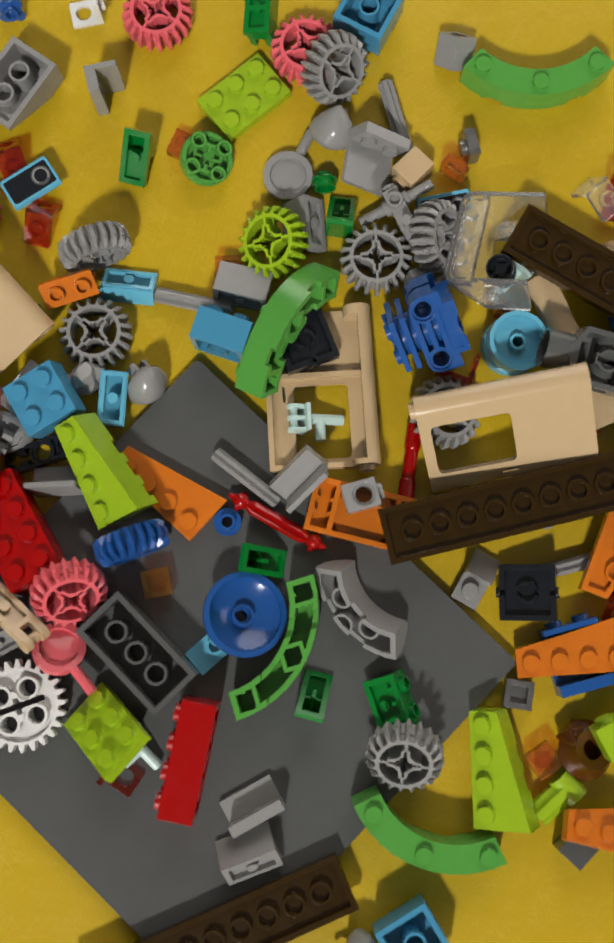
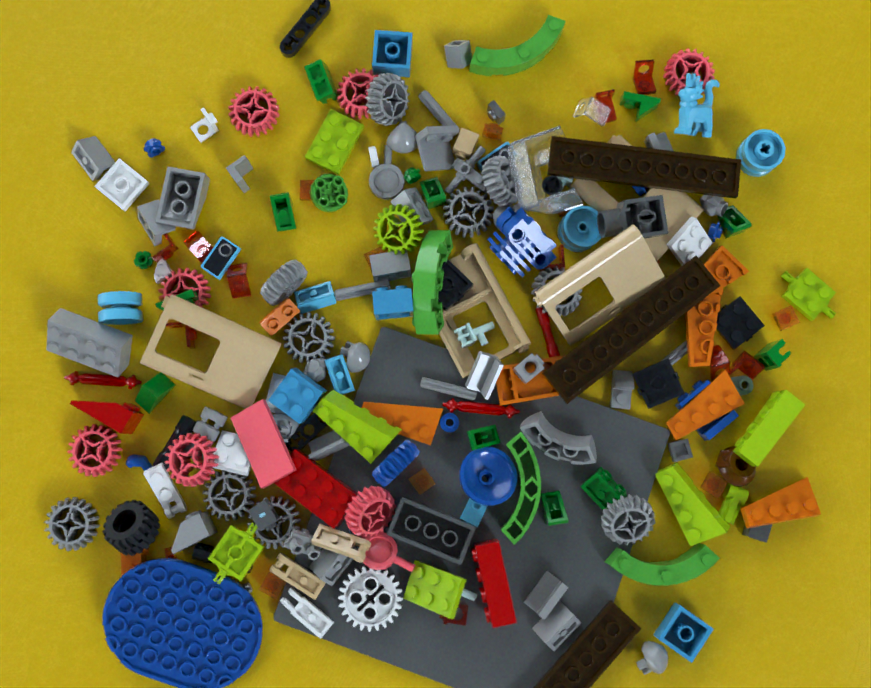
camera: 30 degrees left, 0 degrees up
(285, 136) = (373, 156): none -> white tile

